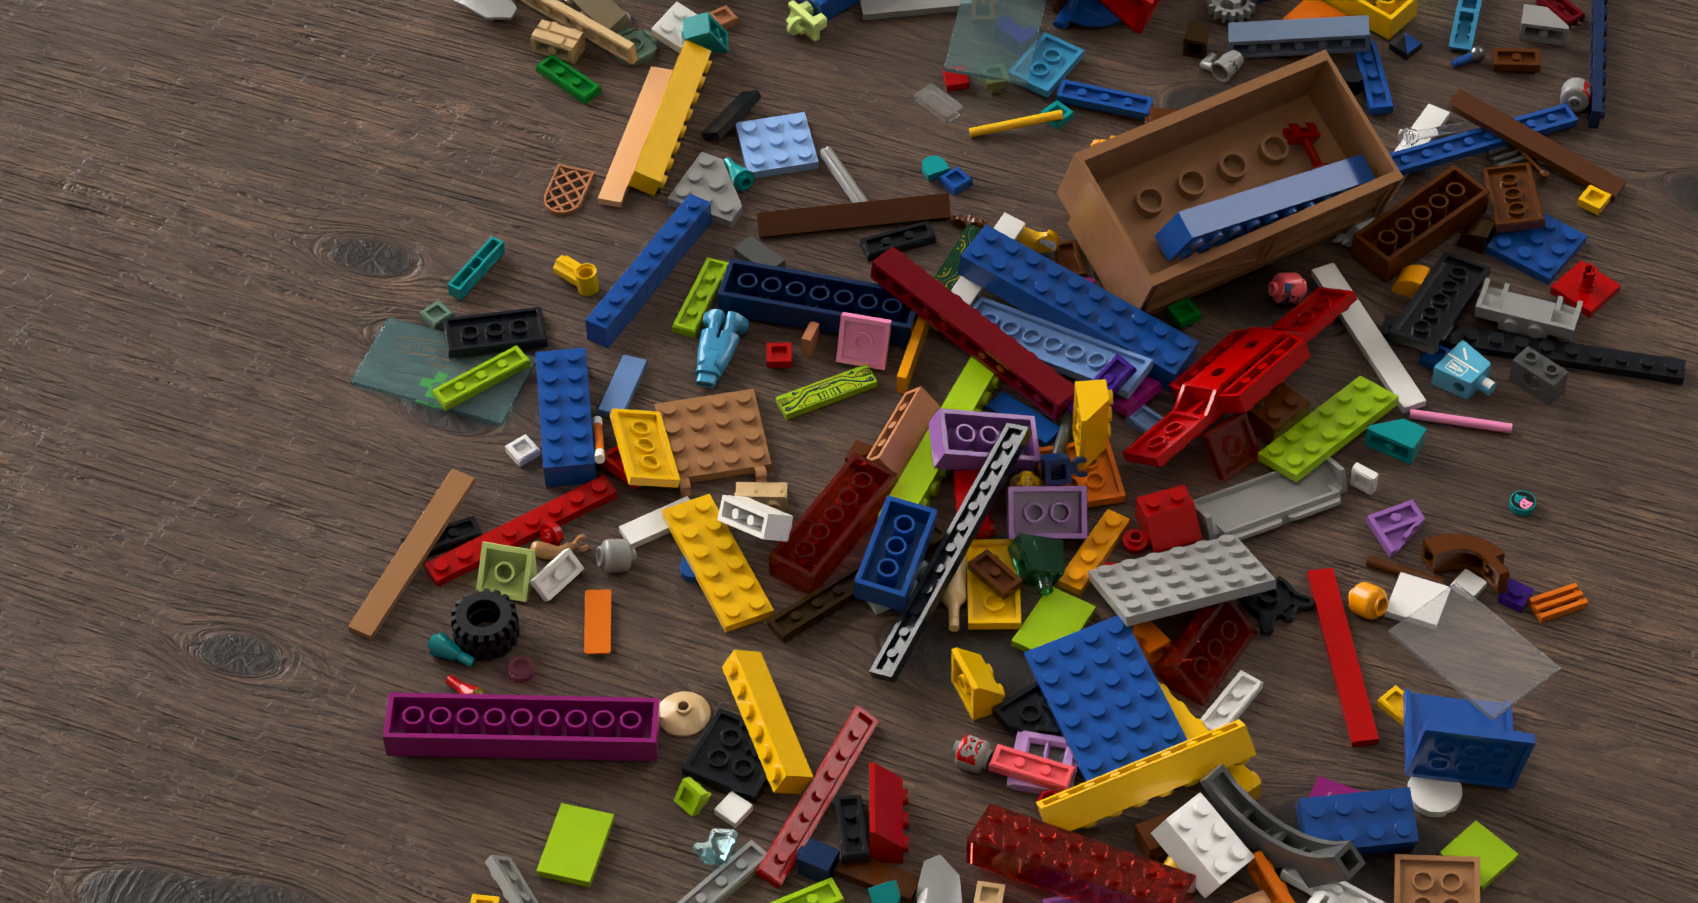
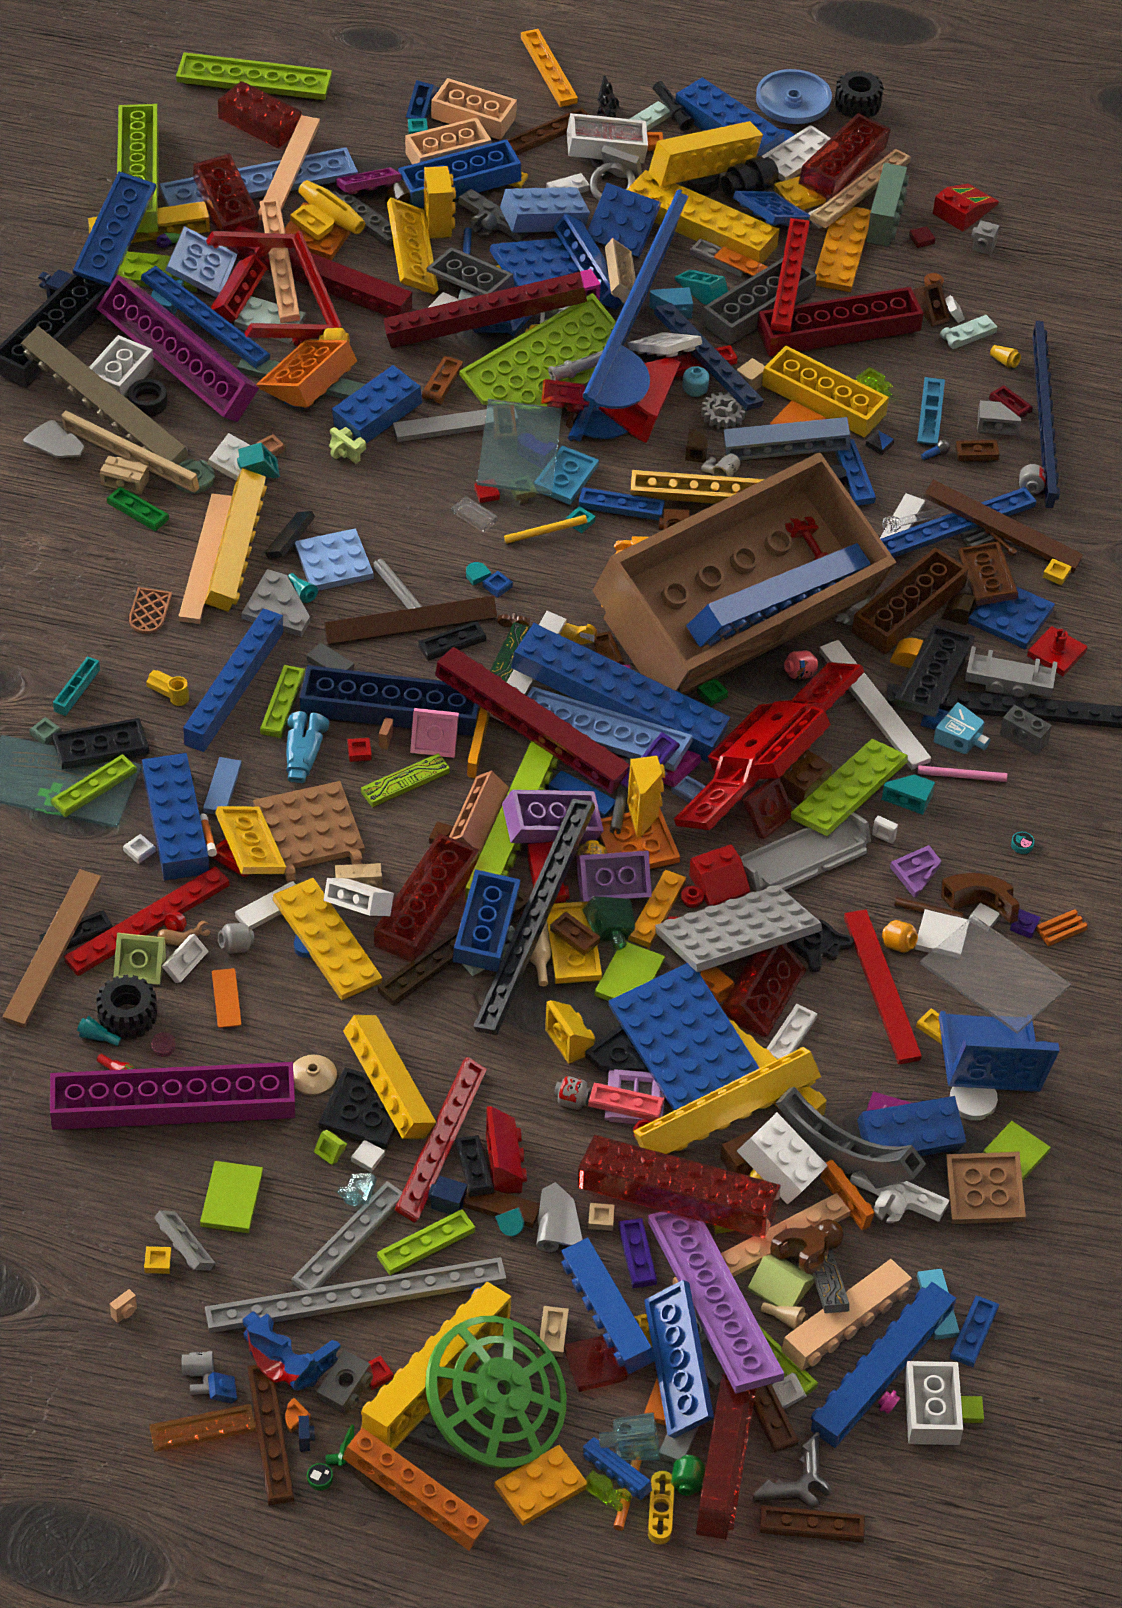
camera: 10 degrees left, 0 degrees up
(1058, 468) = (620, 836): dark blue brick -> none
(1173, 83) = (687, 486): none -> yellow brick

